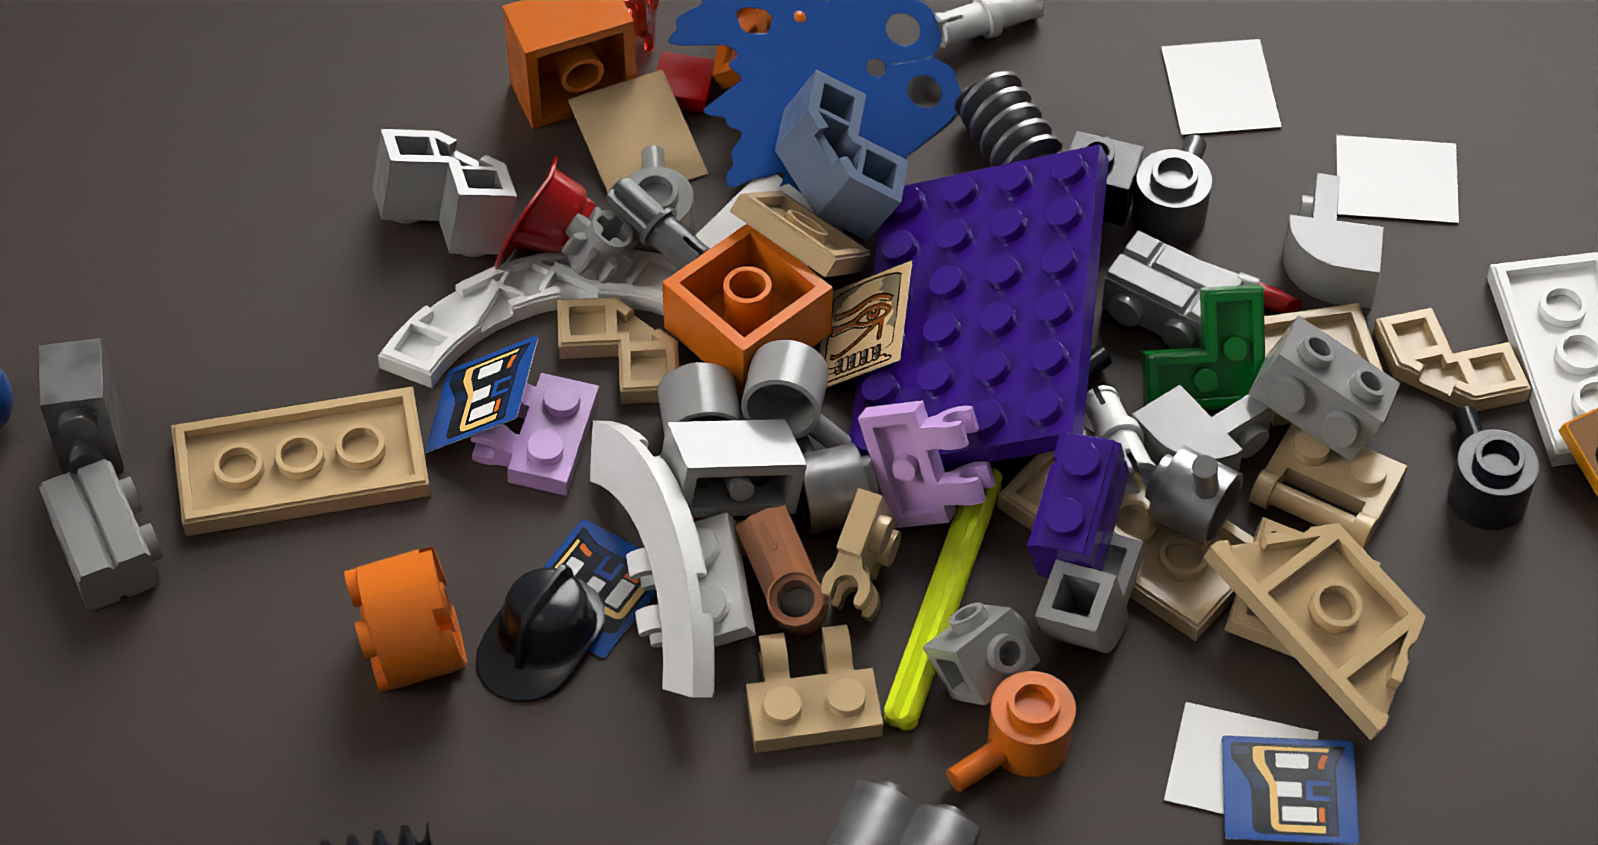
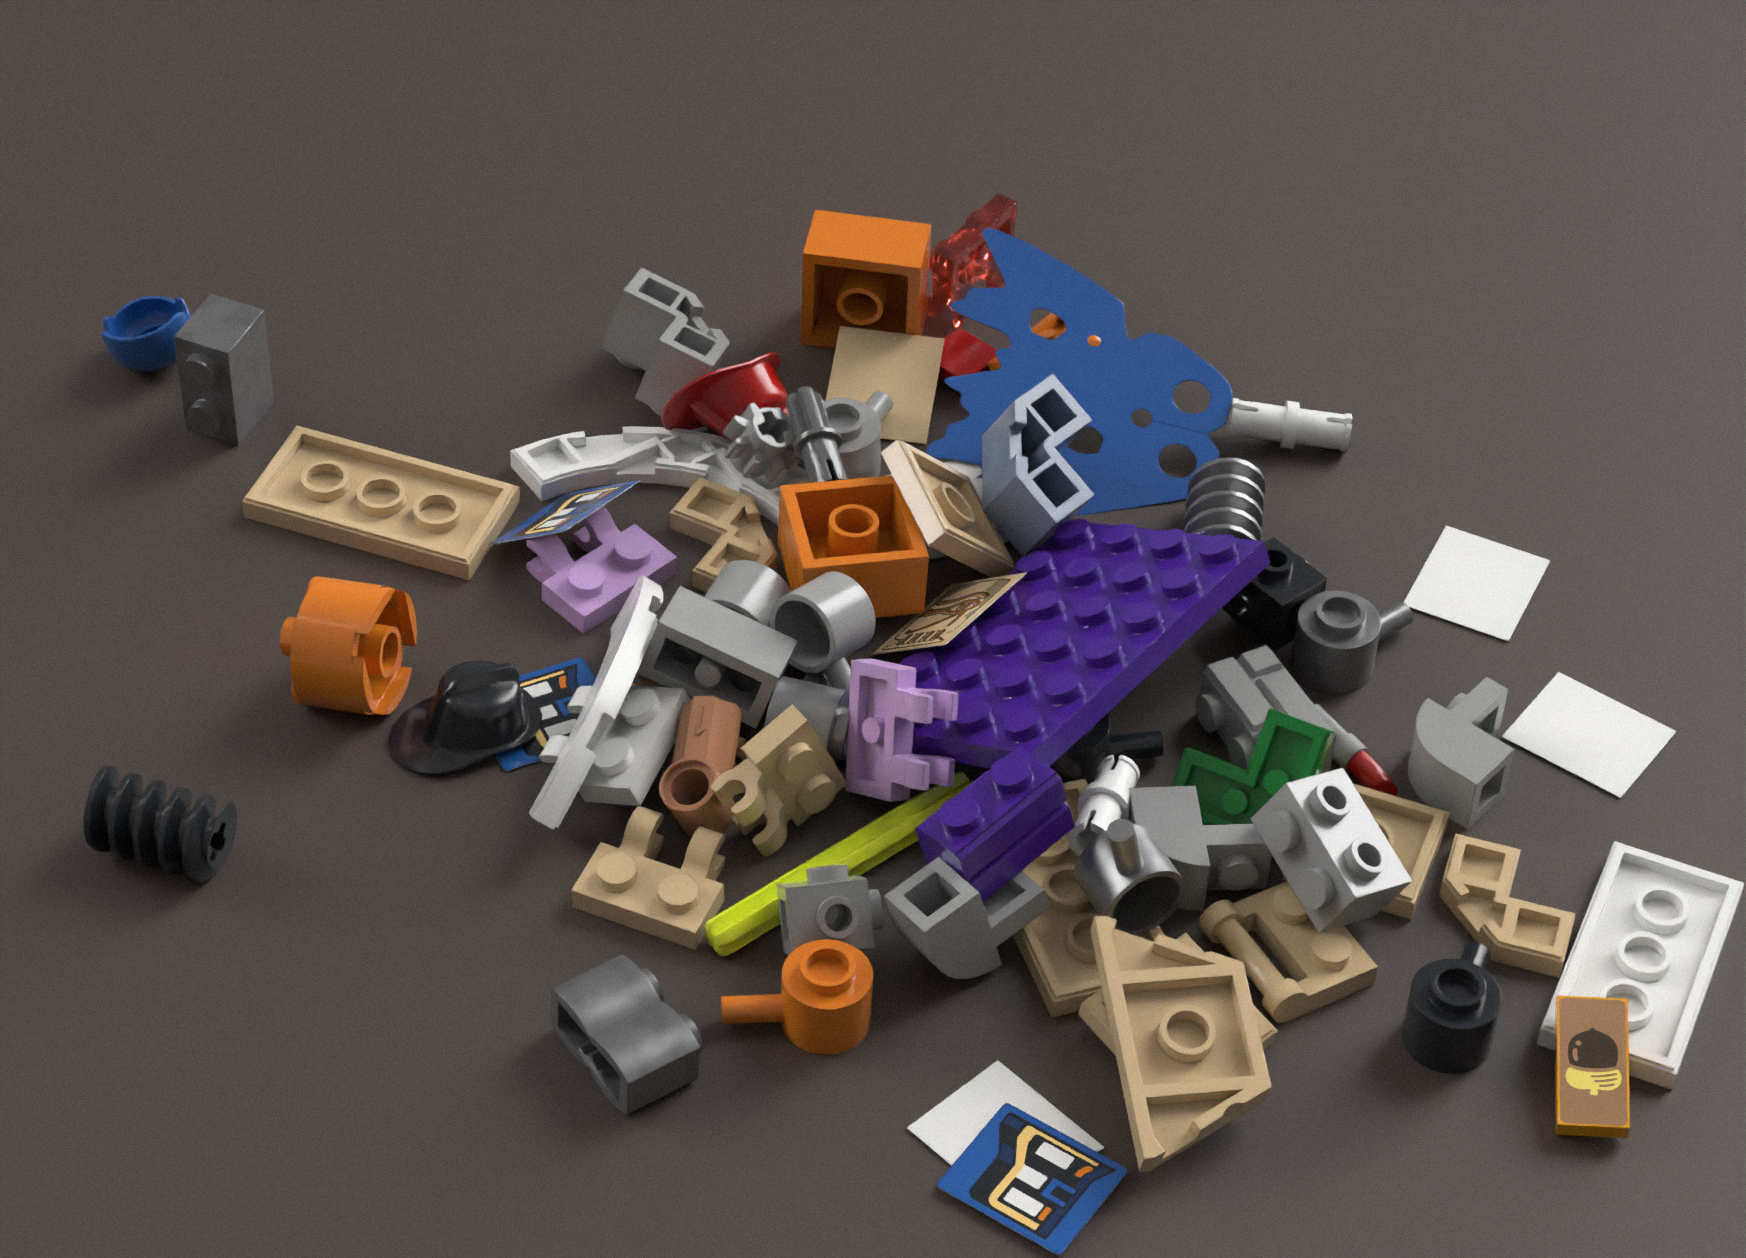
camera: 30 degrees right, 10 degrees down
(100, 534) = (168, 475): light grey brick -> none

